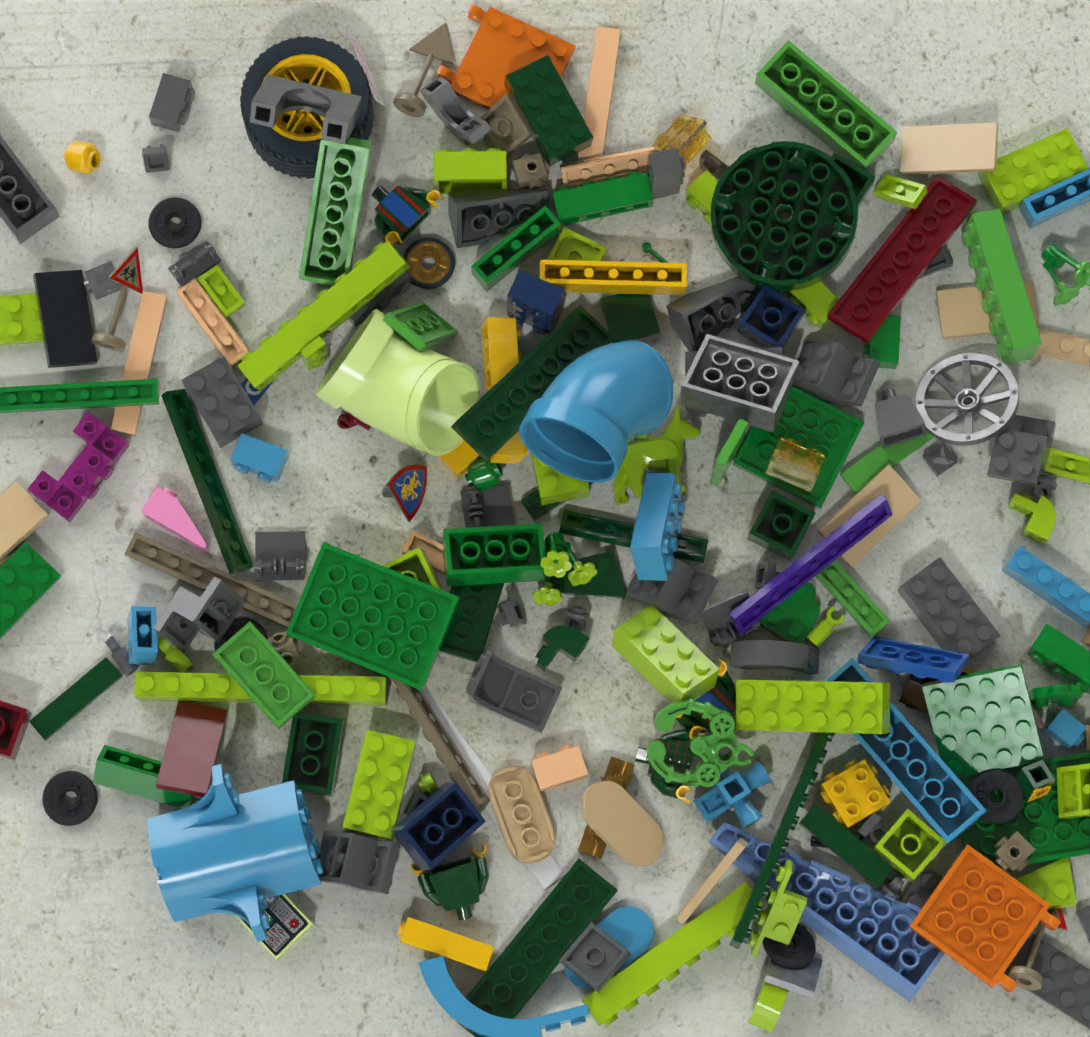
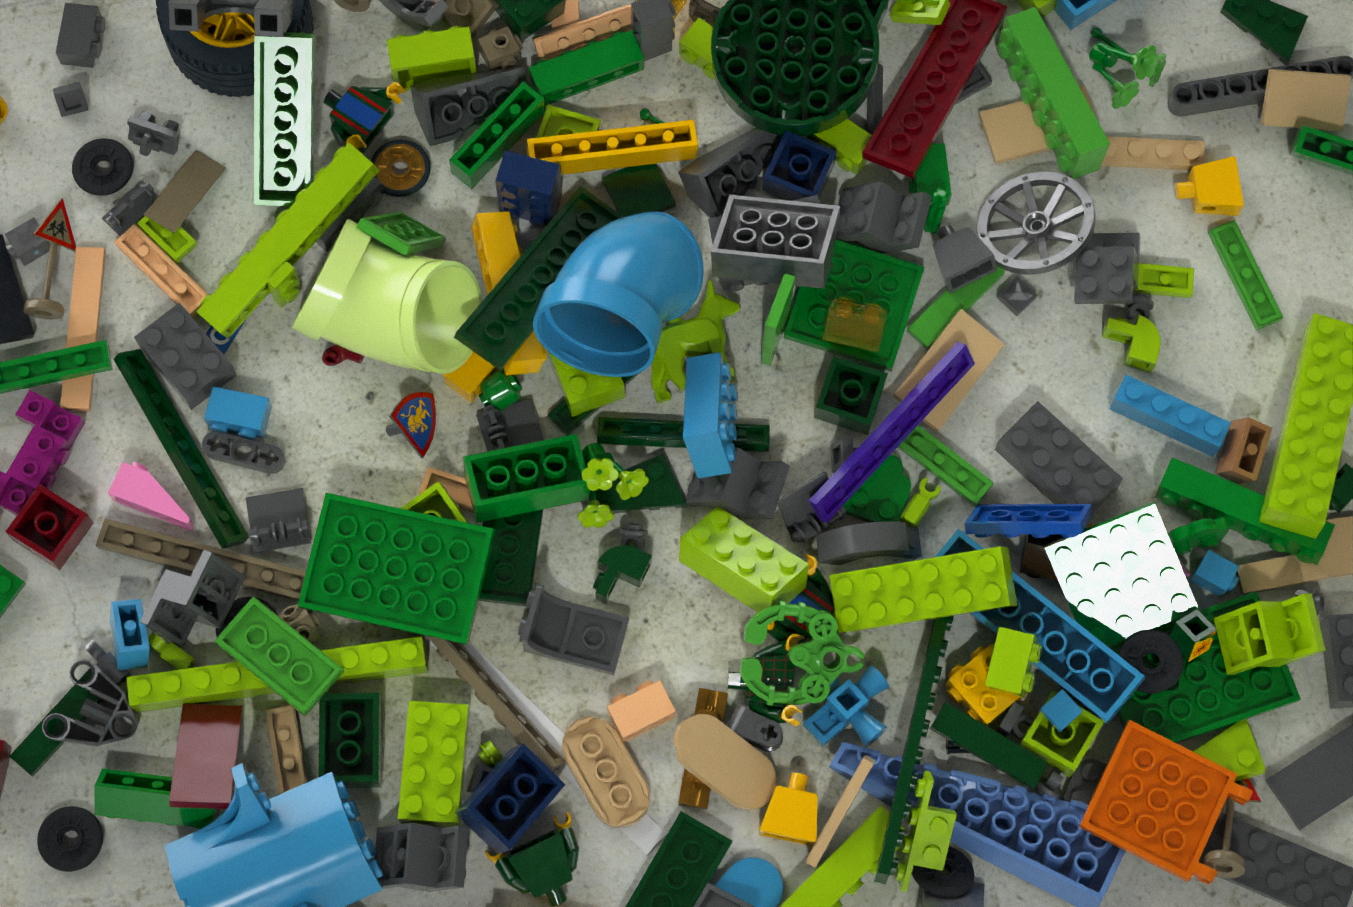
camera: 10 degrees left, 5 degrees down
(88, 532) = (49, 527): none -> dark red brick
(90, 712) = (105, 689): none -> dark grey connector
(221, 203) = (151, 136): none -> dark grey hips
(242, 256) = (185, 191): none -> dark tan sticker
(258, 752) = (286, 747): none -> tan tile
(278, 493) = (265, 451): none -> dark grey beam
(512, 615) = (557, 545): dark grey tile -> none
(649, 796) = (752, 726): none -> dark grey piece
(671, 874) = (792, 813): none -> yellow torso
(847, 269) = (875, 102): none -> dark grey axle
(877, 781) = (1013, 662): none -> lime brick
(882, 375) = (936, 210): none -> green axle
(911, 827) = (1061, 710): none -> dark azure tile
(1020, 848) = (1183, 721): dark tan brick -> none
(1052, 234) = (1097, 33): none -> green hinge

